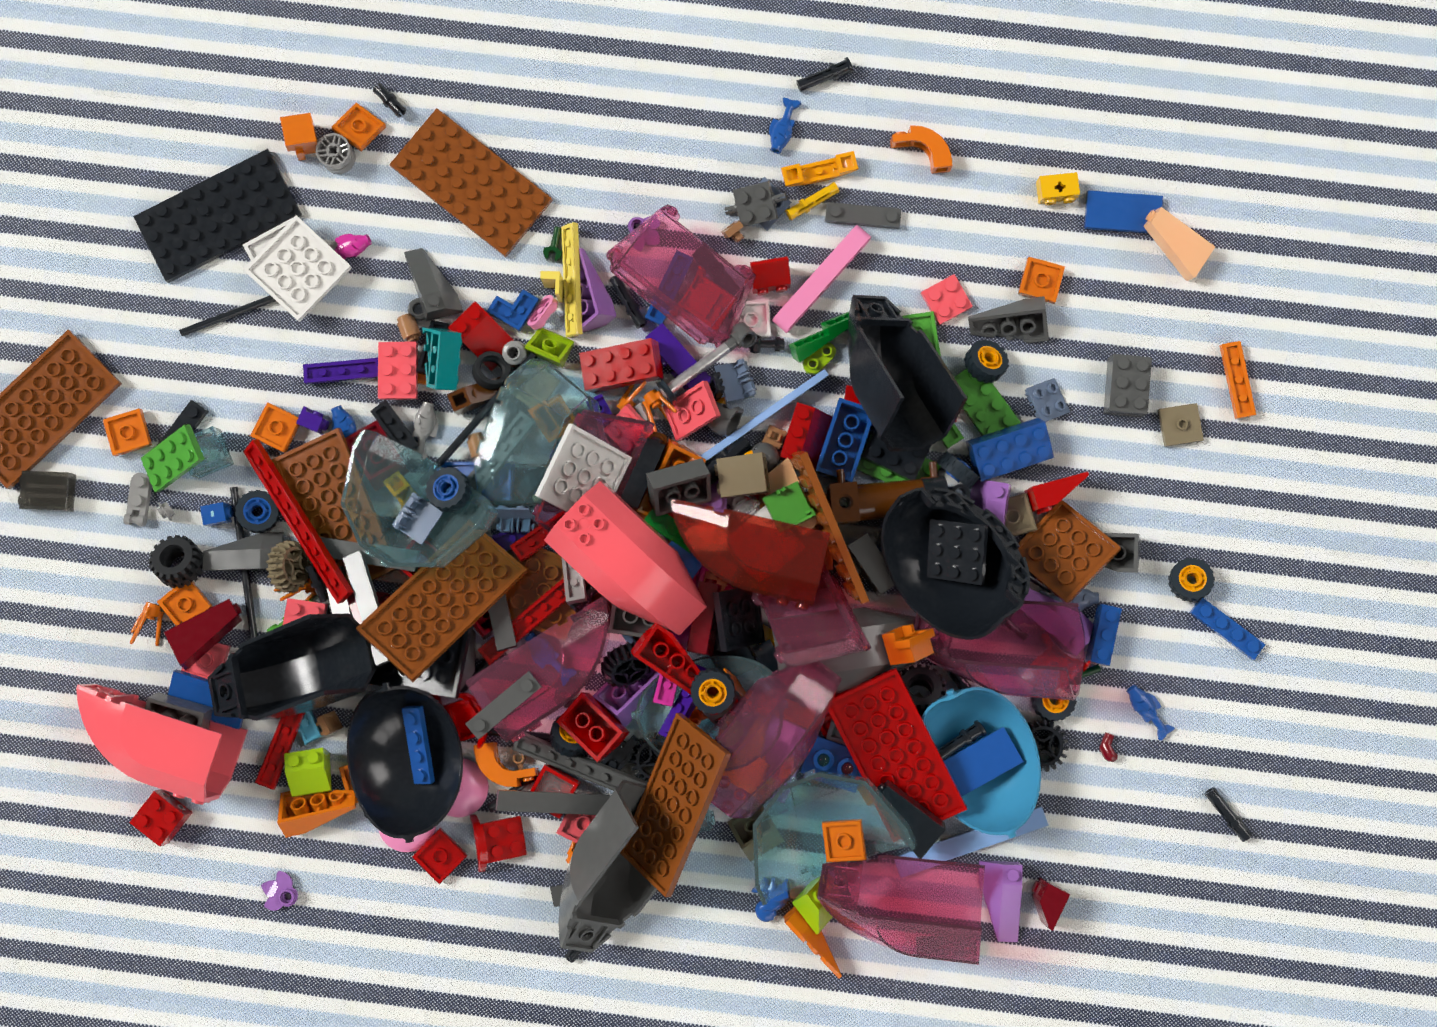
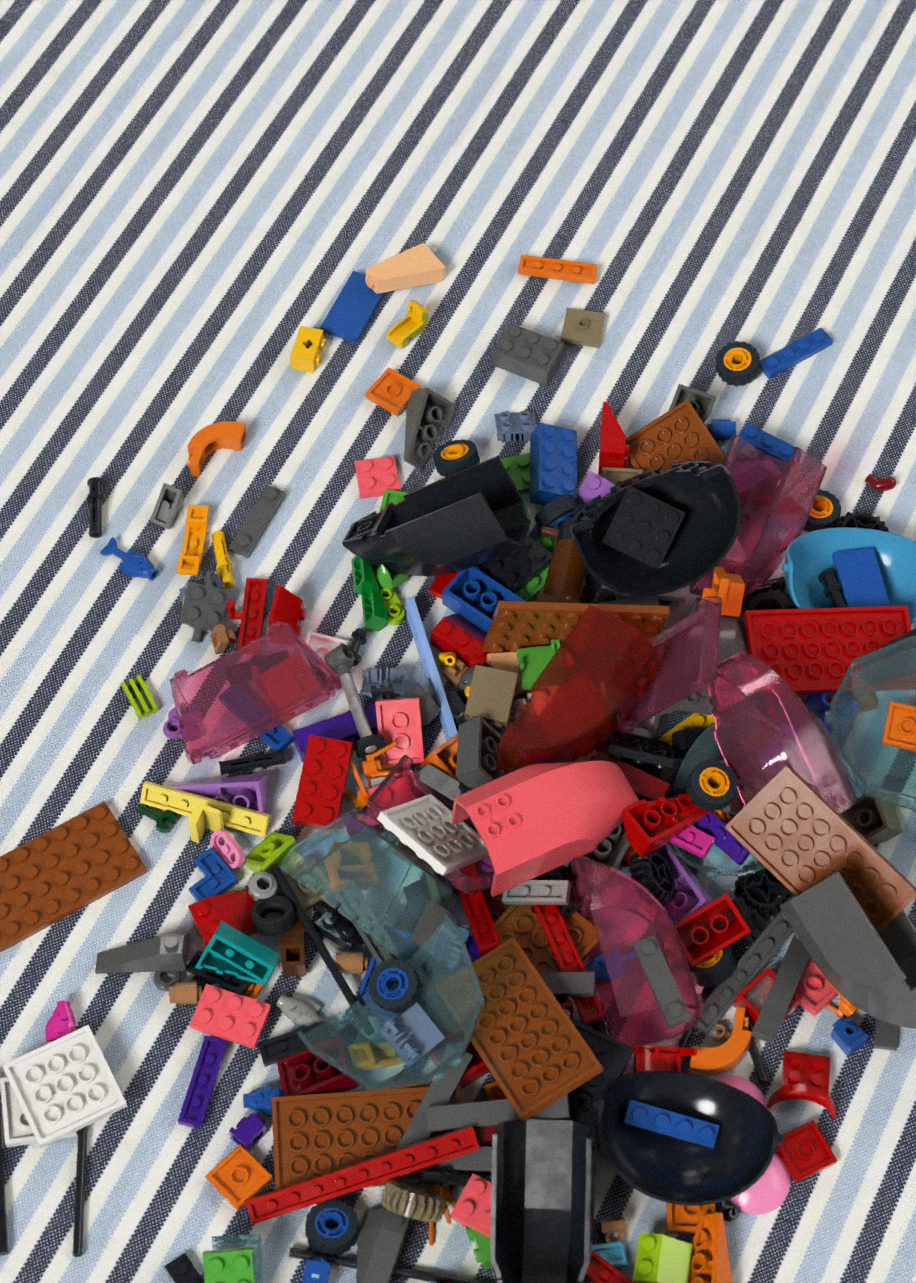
camera: 75 degrees left, 25 degrees down
(509, 498) = (428, 922): none -> dark grey tile
(548, 873) = (848, 1042): none -> blue brick
(667, 175) = (132, 683): none -> lime tile
(765, 246) = (252, 611): none -> red plate
(781, 426) = (446, 658): none -> yellow arm
(821, 279) = (308, 576): bright pink beam -> none
(840, 348) = (389, 579): none -> bright green plate
(844, 133) = (168, 503): none -> dark grey slope
(1111, 586) = (721, 428): none -> blue brick
(1117, 268) = (410, 325): none -> yellow animal
(1147, 707) = (848, 439): blue animal -> none

